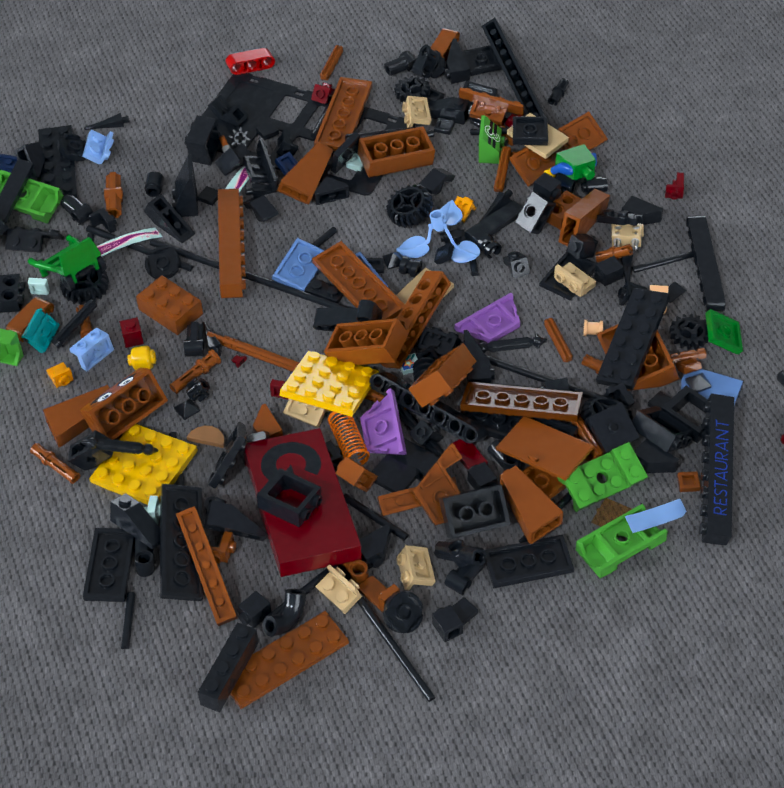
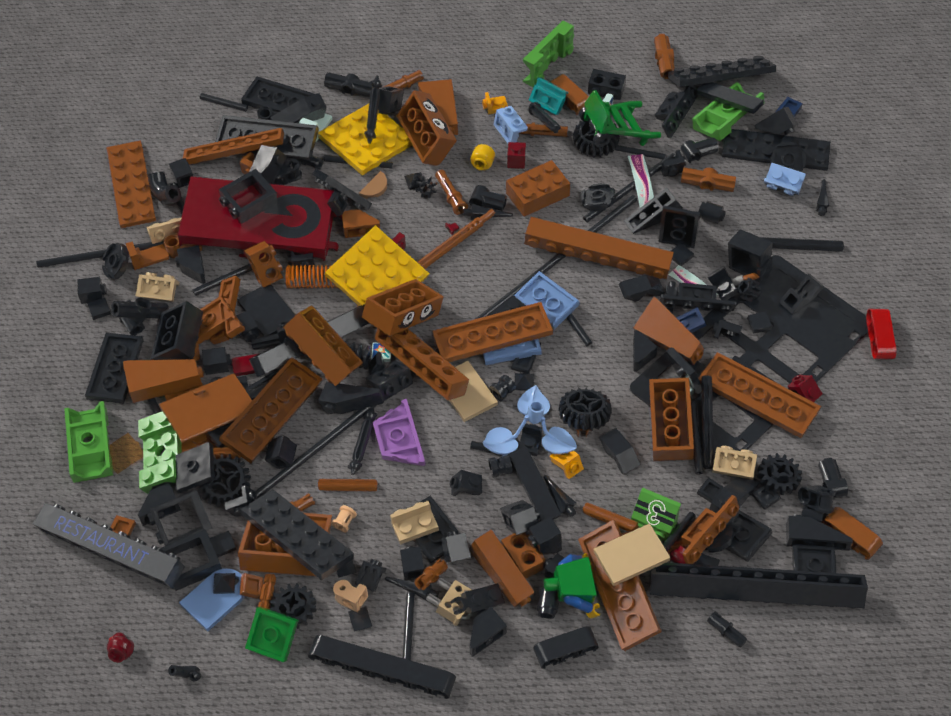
camera: 110 degrees right, 5 degrees up
(68, 505) = (348, 84): none -> black piece
(169, 129) = (806, 244): none -> black axle
(228, 667) = (132, 138): black brick -> none
(328, 318) = (438, 314): black beam -> none
(331, 62) = (860, 414): dark orange axle -> none
(383, 427) = (301, 299): medium lavender wing -> none
(444, 253) = (508, 423): black tile -> none
(530, 130) = (631, 539): black plate -> none
(625, 166) = (565, 646): none -> black beam
(656, 516) = (94, 474): light blue sticker -> none
(676, 189) = (508, 691): dark red bracket -> none

